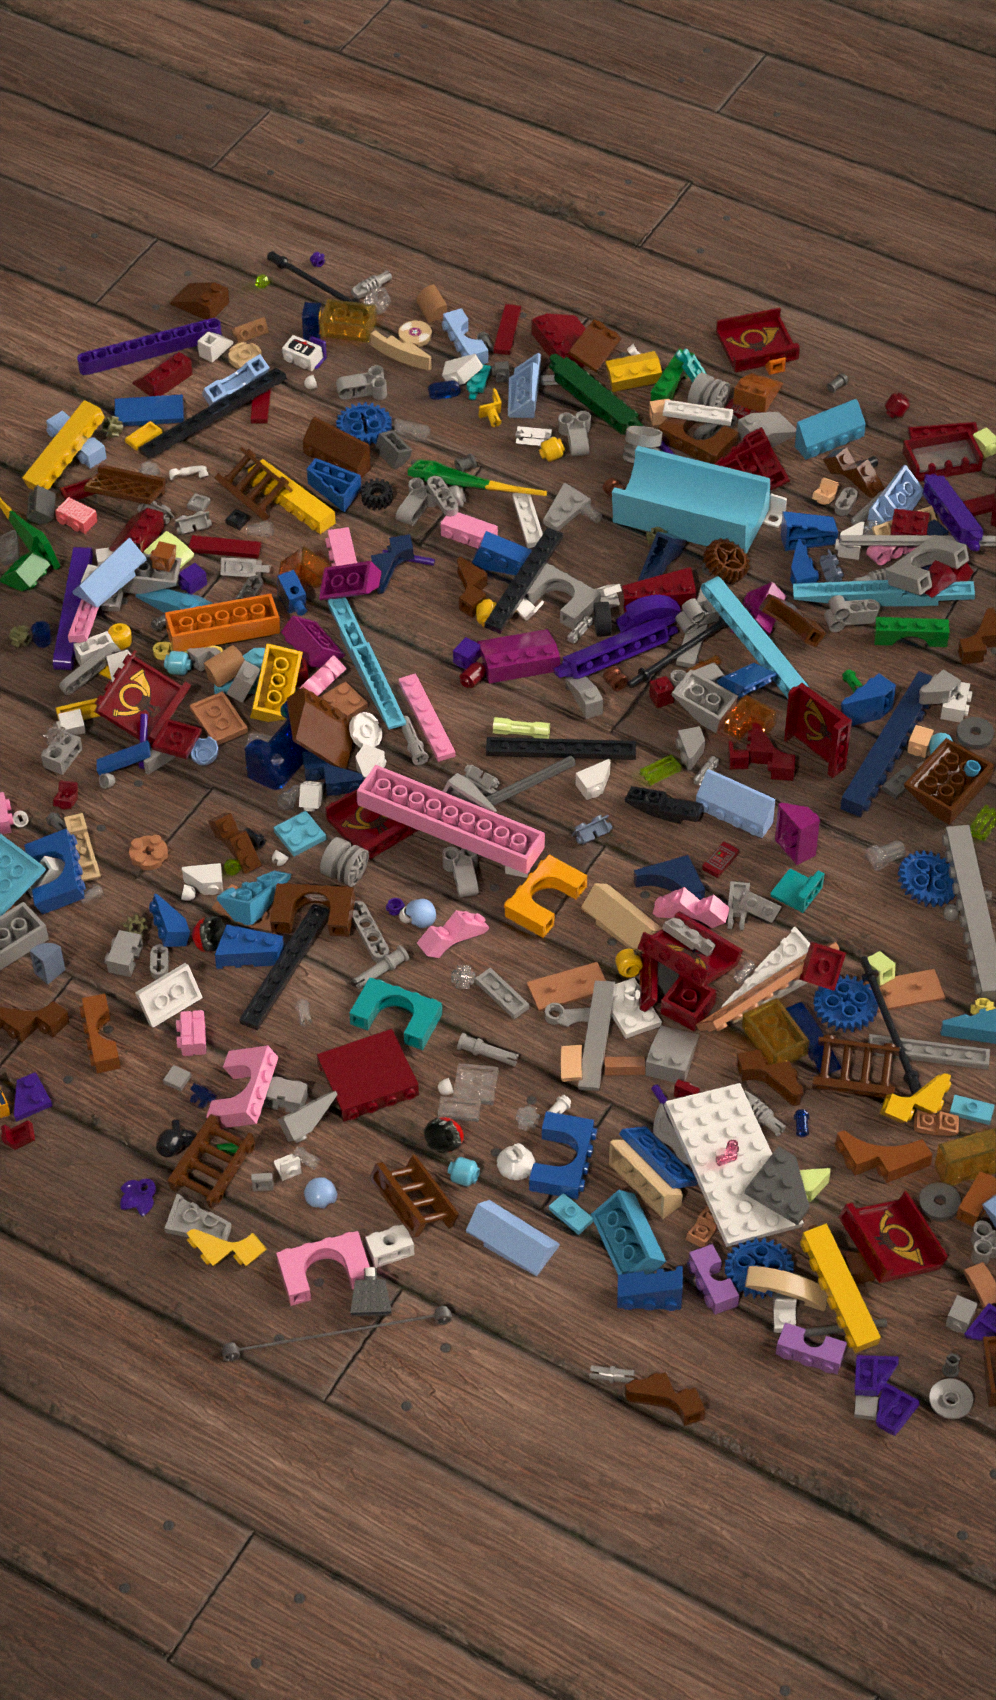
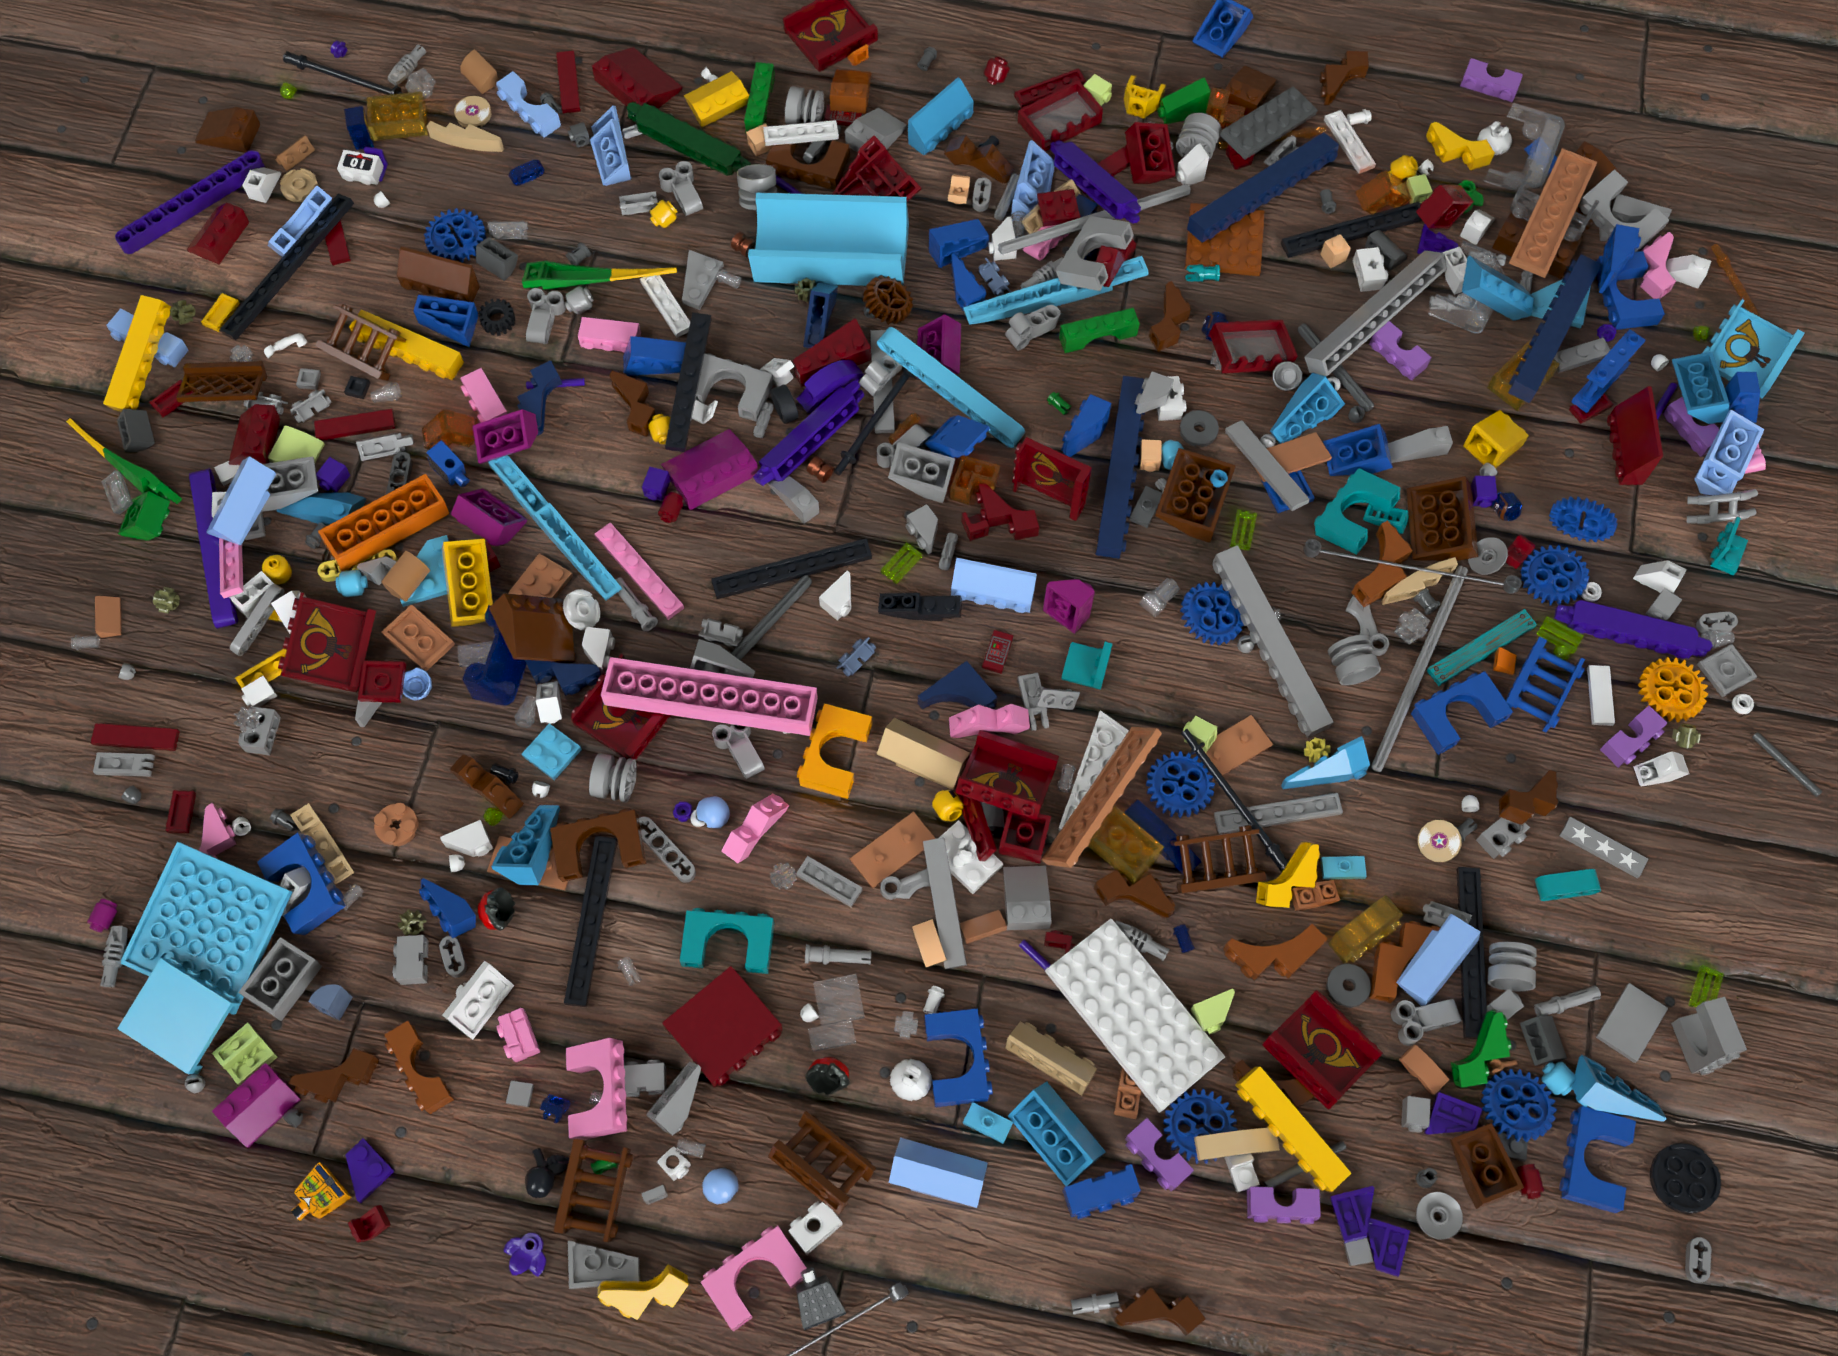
camera: 20 degrees left, 15 degrees up
(41, 634) = (188, 590): clear blue brick -> none
(66, 795) = (282, 783): dark red bracket -> none
(76, 515) = (178, 432): coral brick -> none
(106, 780) = (321, 750): light grey hinge -> none
(123, 758) = (331, 719): blue tile -> none
(143, 734) = (345, 690): dark purple bar -> none
(152, 408) = (216, 278): blue tile -> none
(163, 556) = (293, 462): dark orange brick -> none
(243, 681) = (431, 587): light grey slope -> none
(248, 947) = (542, 912): blue wedge -> none
(324, 676) = (514, 558): bright pink piece -> none
(363, 384) = (438, 188): light grey piece -> none
(388, 962) = (699, 882): light grey pin -> none
(442, 489) = (567, 296): light grey beam -> none
(461, 368) = (537, 144): white slope -> none
(463, 1171) = (862, 1111): medium azure head -> none
(478, 381) = (557, 150): teal plate -> none
(492, 409) = (585, 182): yellow bracket -> none
(508, 726) = (727, 559): yellowish green axle -> none
(595, 345) = (668, 81): reddish brown slope -> none
(659, 1157) = (1057, 1030): blue tile -> none
(661, 692) = (873, 472): dark red brick -> none
(666, 1133) = (1051, 995): light grey piece -> none
(688, 936) = (998, 757): light grey hinge -> none
(691, 364) = (776, 80): teal plate -> none
(730, 1154) = (1132, 1009): clear pink arm -> none
(777, 506) = (917, 222): white bracket -> none
(780, 1187) = (1193, 1028): dark grey plate -> none
(788, 614) = (973, 347): reddish brown arch -> none
(822, 966) = (1151, 758): dark red tile -> none

